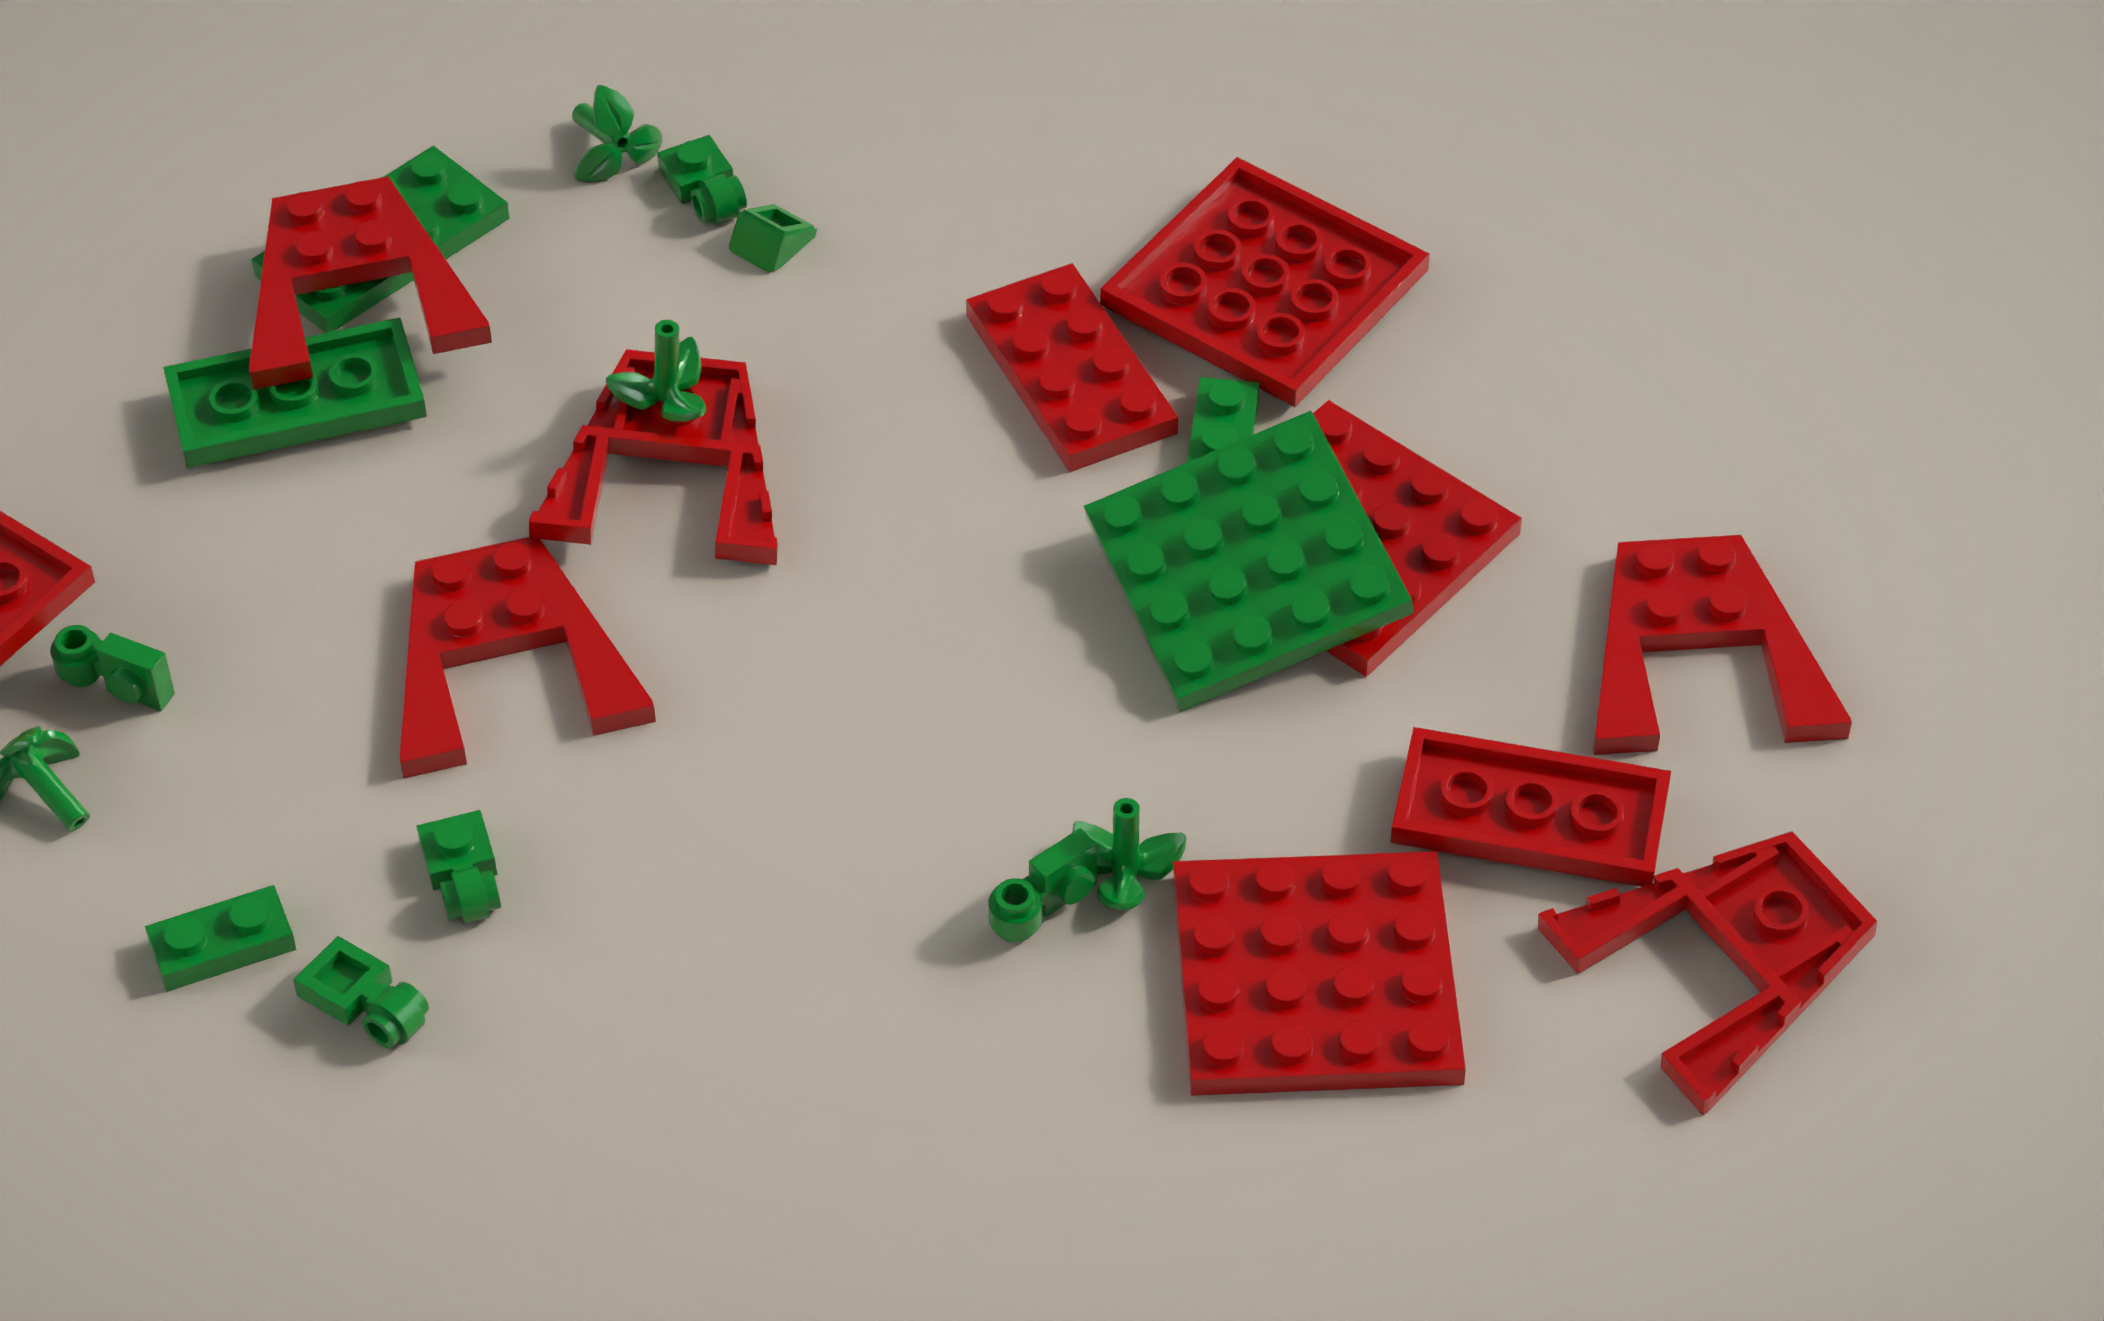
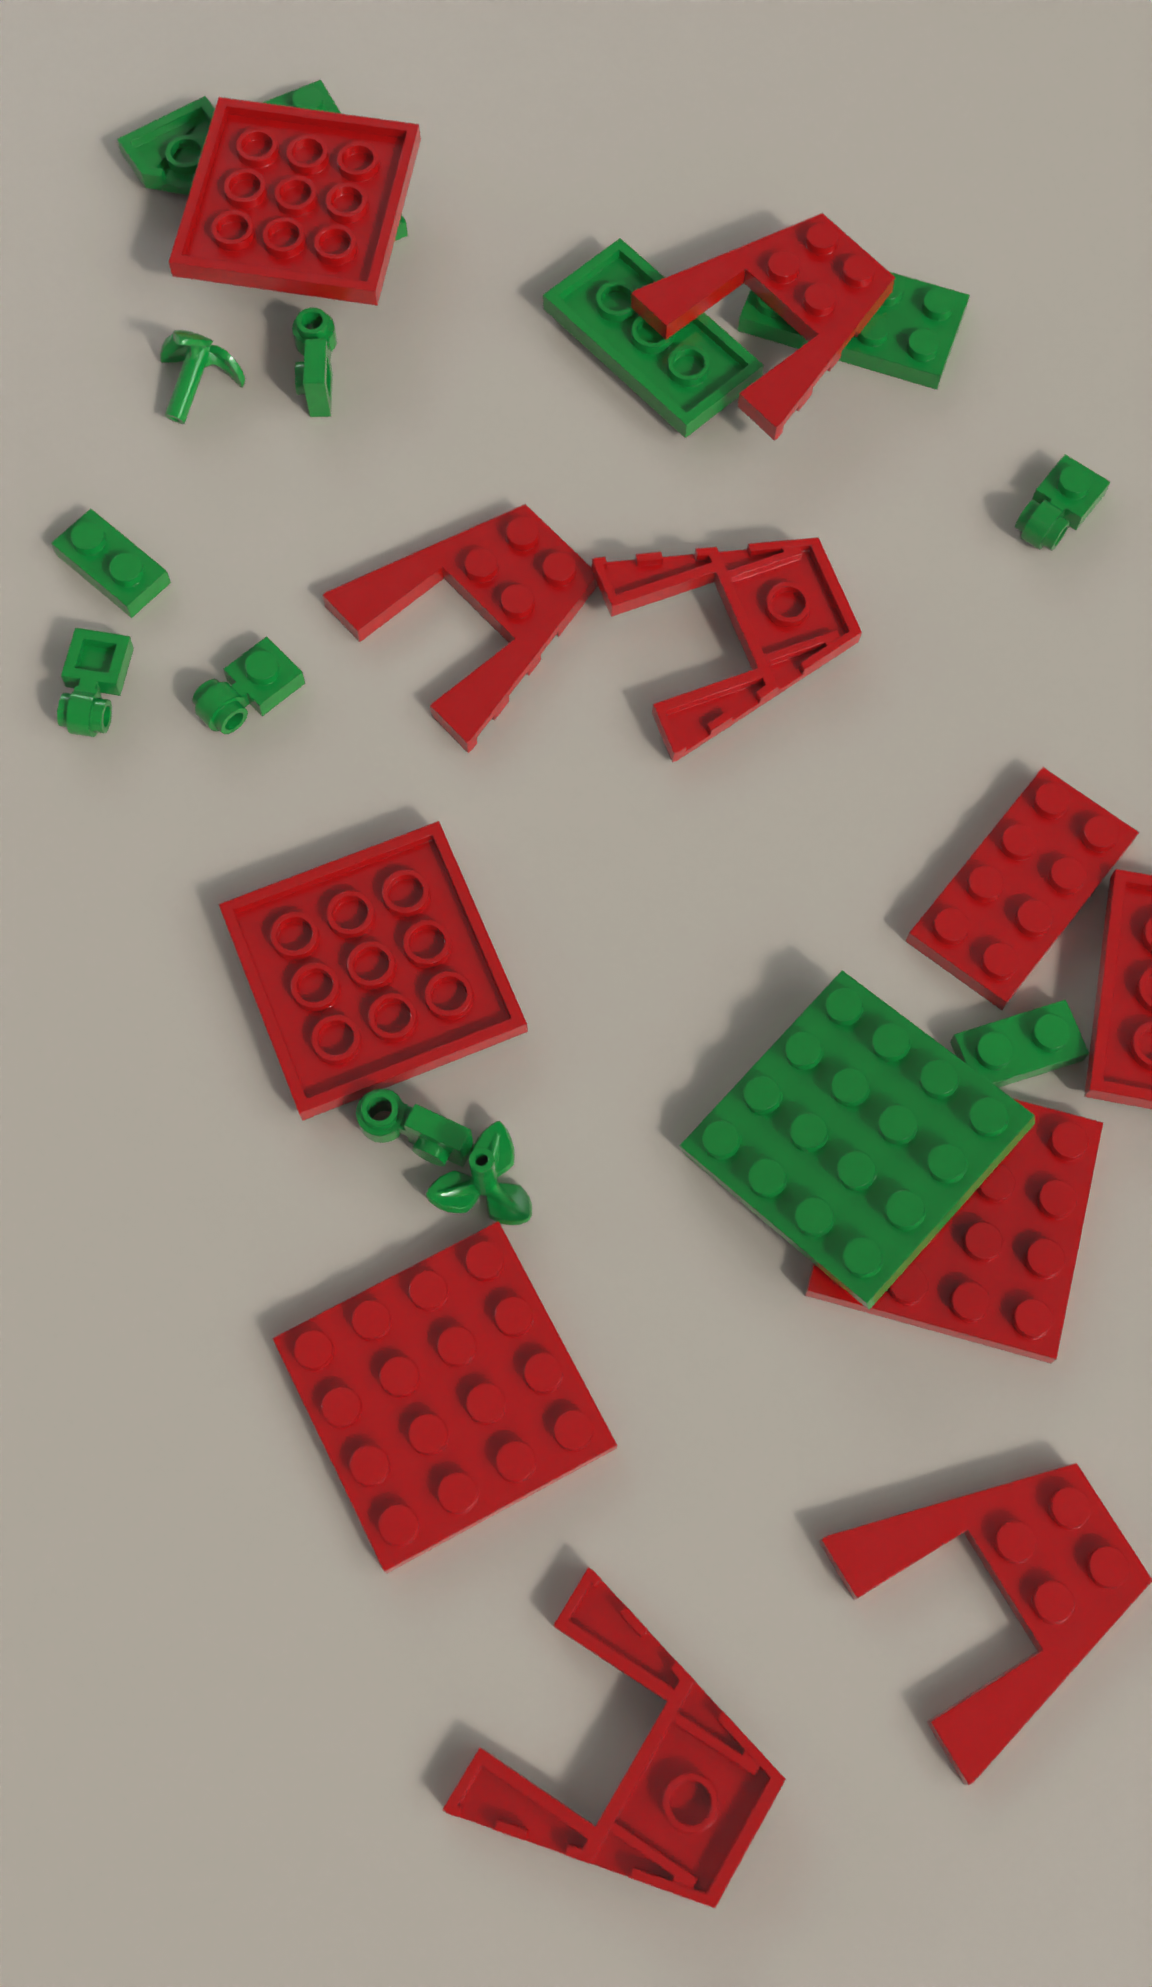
camera: 65 degrees right, 20 degrees up
(610, 122) = (1060, 400): green plant -> none
(675, 369) = (787, 573): green plant -> none
(769, 236) = (1031, 584): green slope -> none
(850, 869) = (372, 969): none -> red plate
(1531, 807) = (711, 1513): red plate -> none

